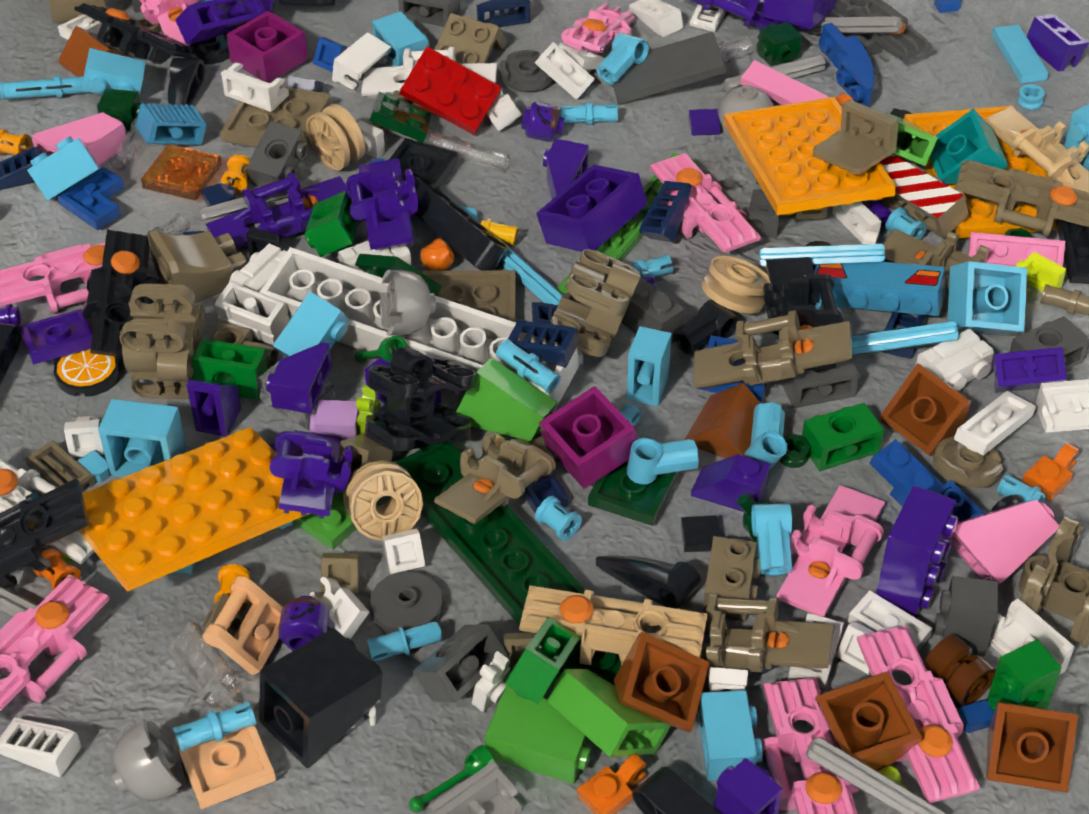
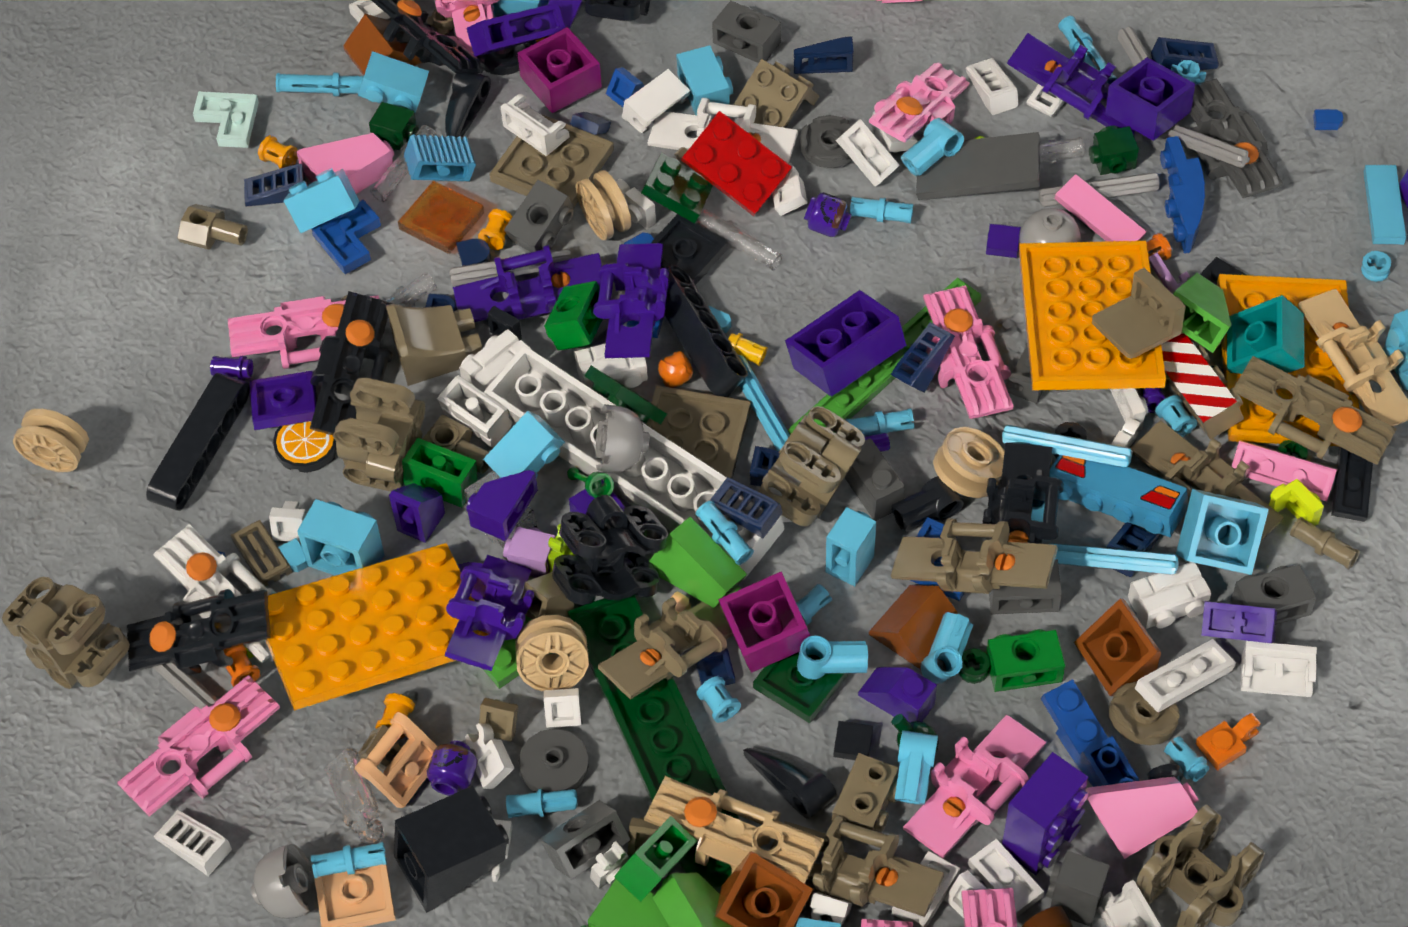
camera: 15 degrees right, 10 degrees up
(564, 164) = (836, 278): dark purple slope -> none

